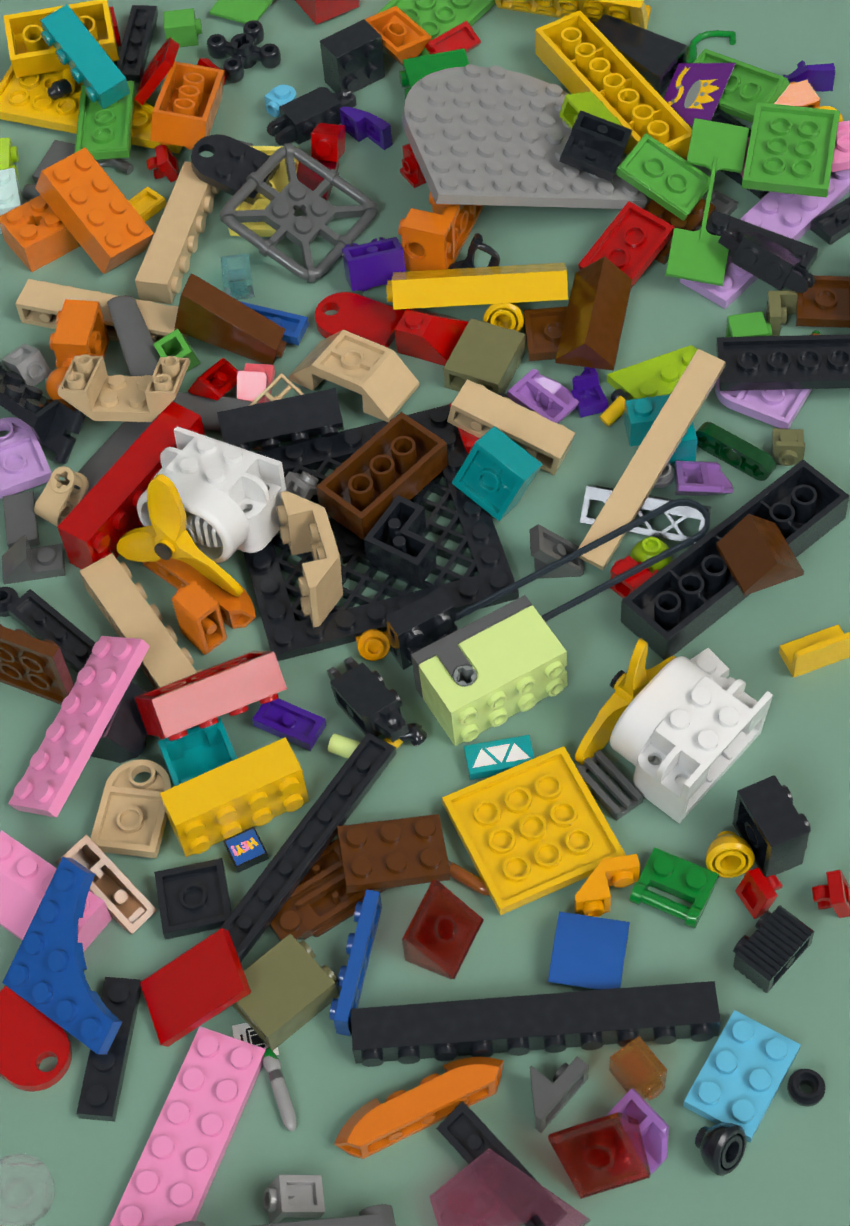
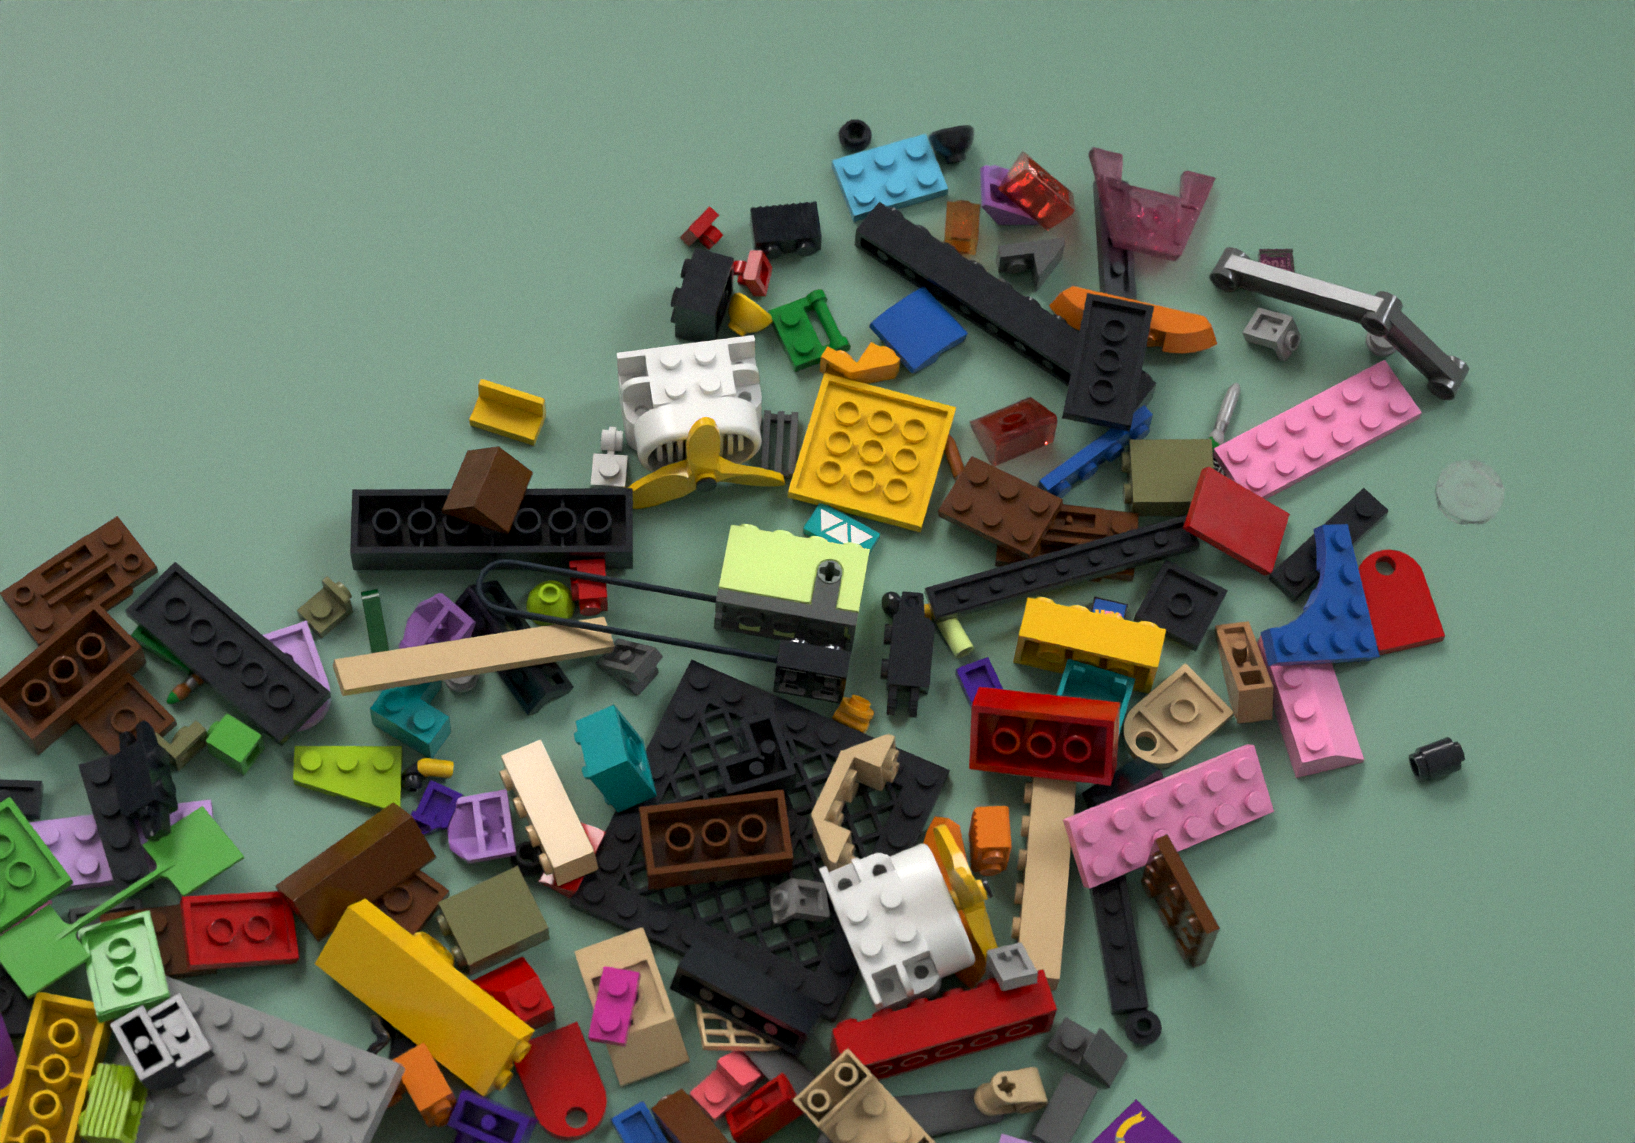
camera: 150 degrees left, 10 degrees up
(107, 520) = (1010, 966): none -> light grey bracket
(354, 343) = (614, 1006): none -> dark pink plate
(404, 1024) = (1108, 362): none -> black plate

